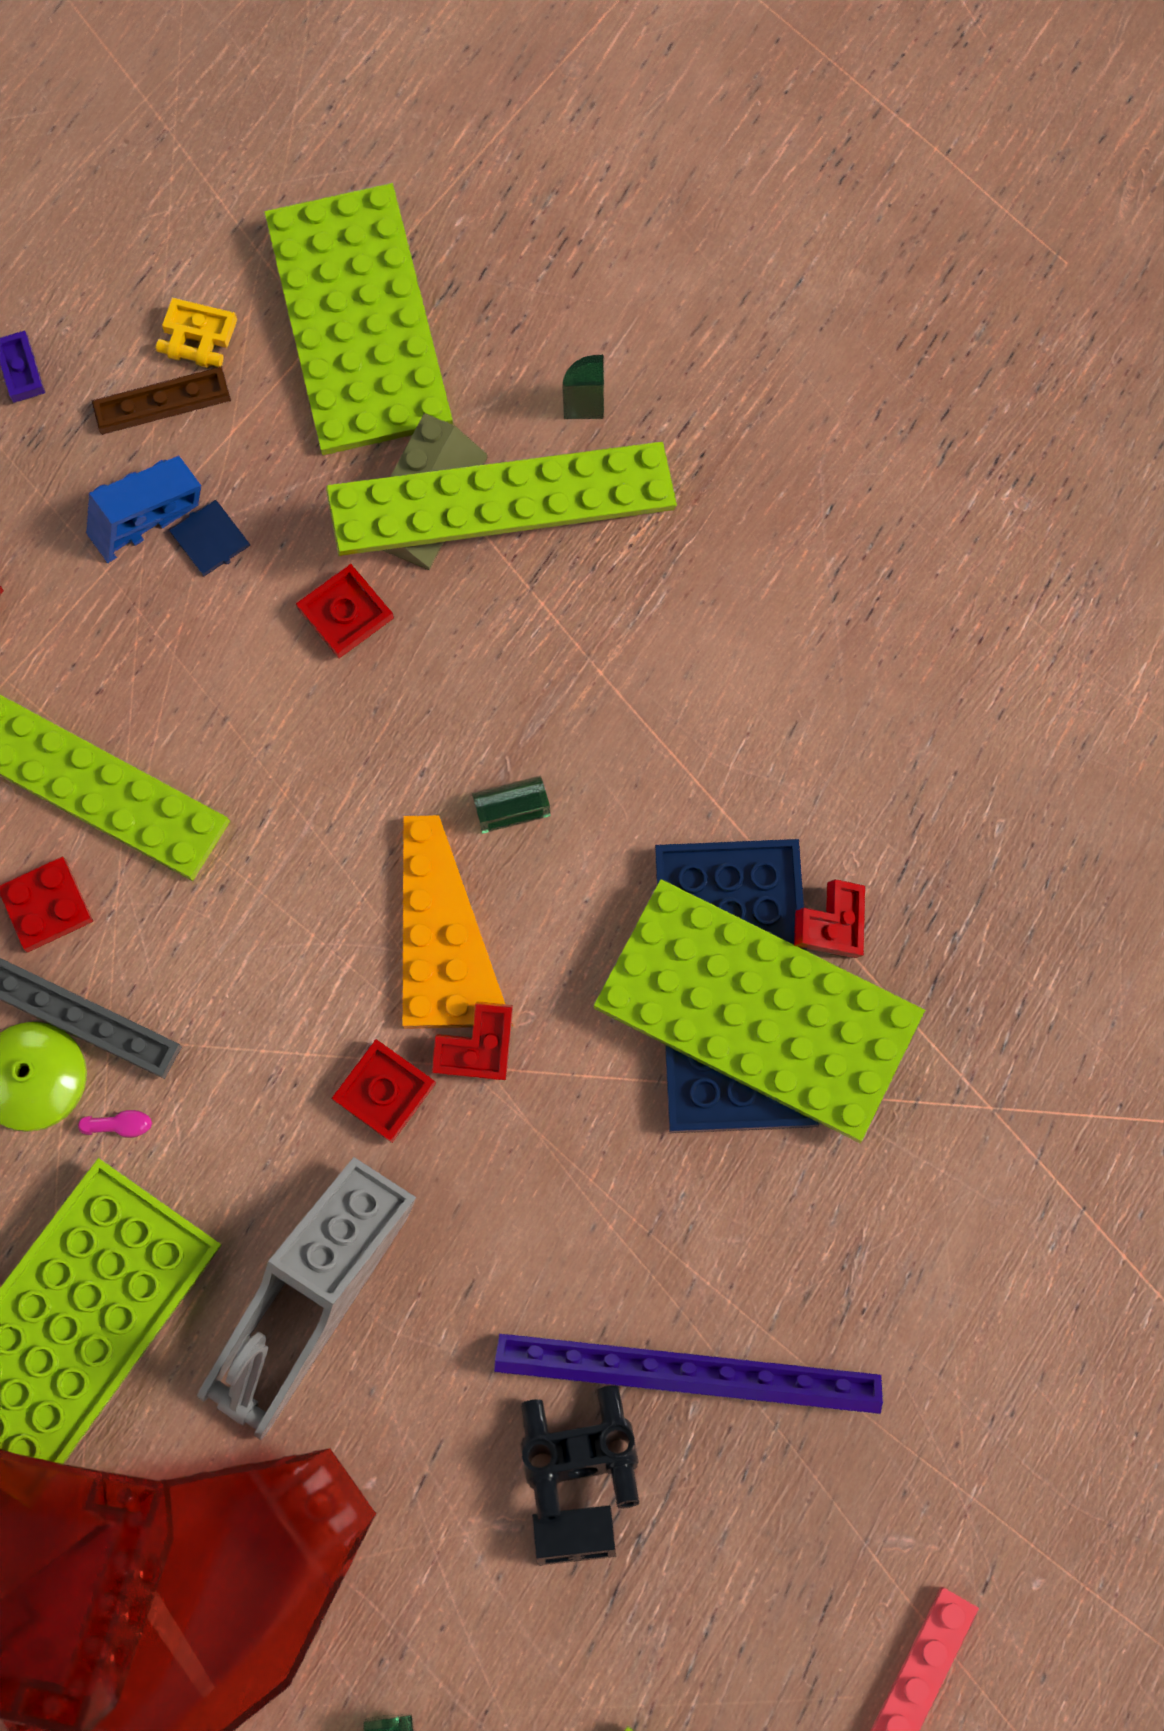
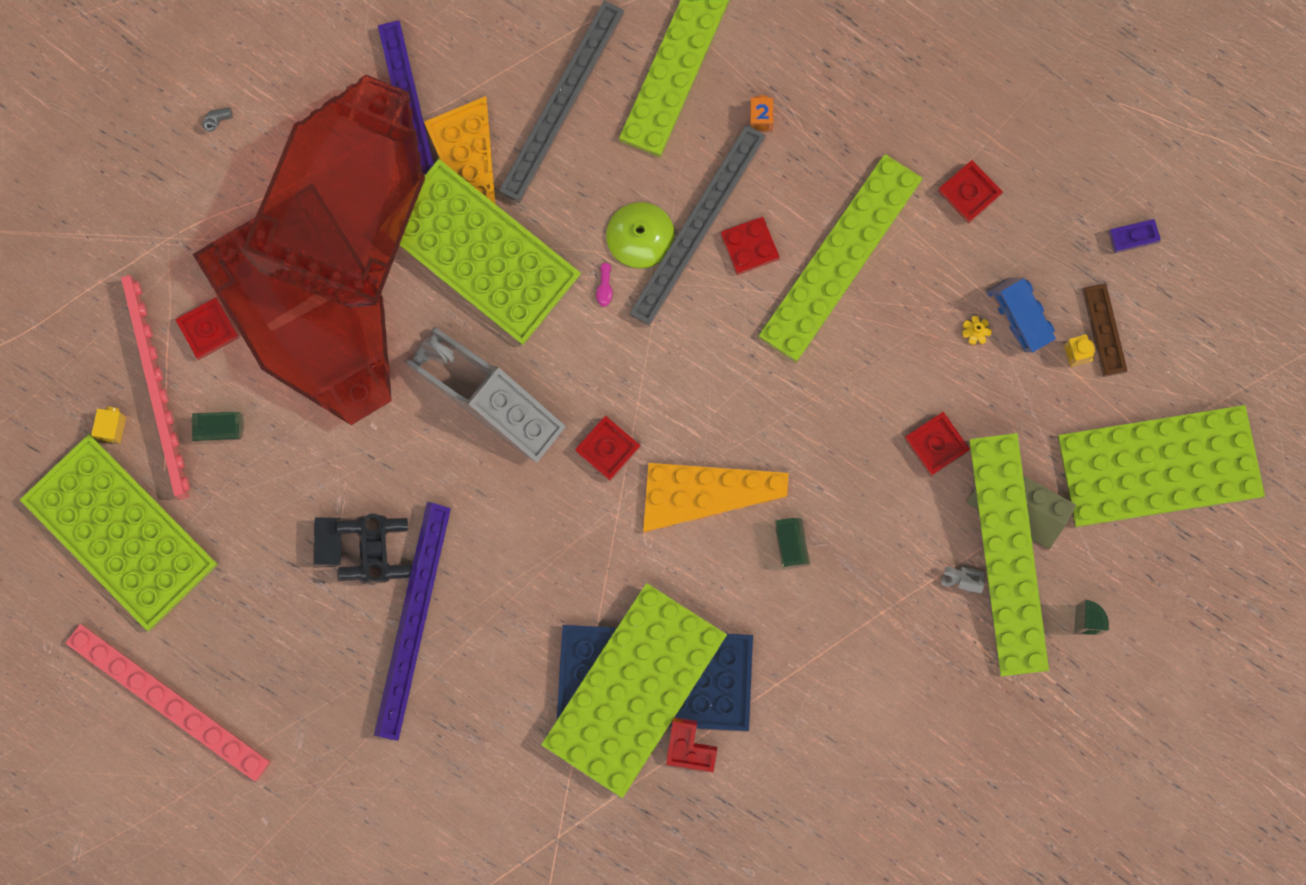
camera: 95 degrees right, 5 degrees up
(169, 570) = (976, 330): none -> yellow plant
(192, 420) = (1079, 350): none -> yellow brick
(197, 323) = (1161, 358): yellow plate -> none
(209, 538) = (999, 358): dark blue piece -> none
(484, 1053) = (625, 512): red plate -> none
(541, 555) = (967, 578): none -> light grey plate

